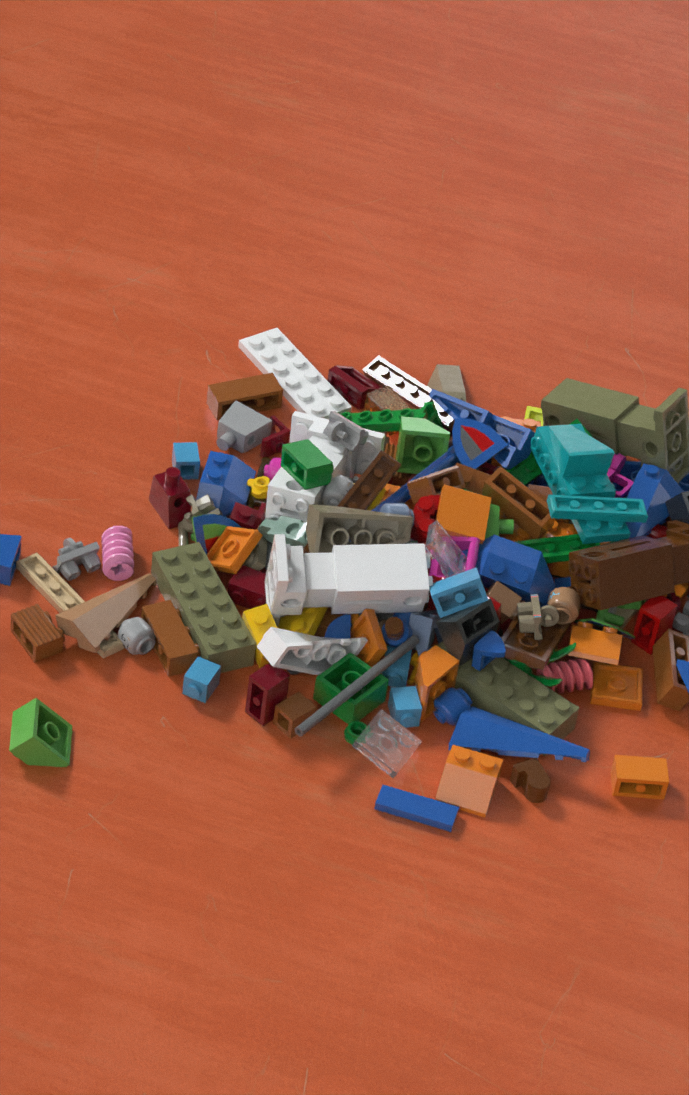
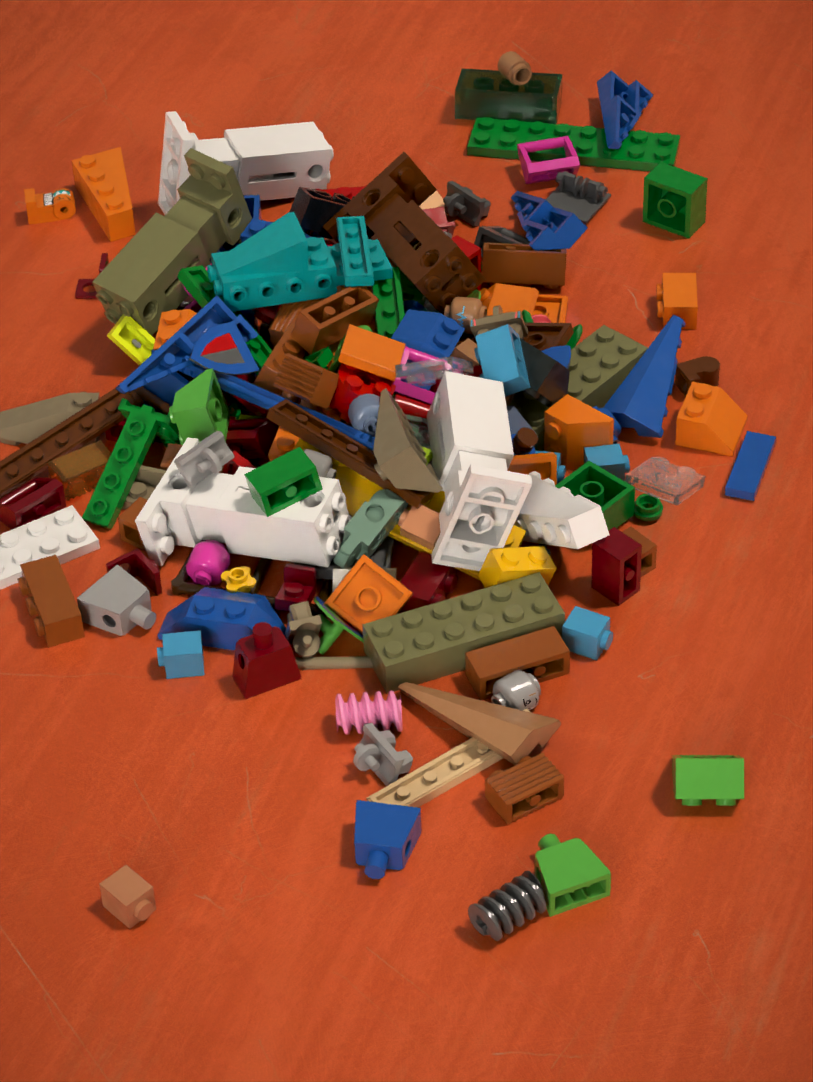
camera: 80 degrees left, 0 degrees up
(356, 686) = (617, 485): dark grey piece -> none

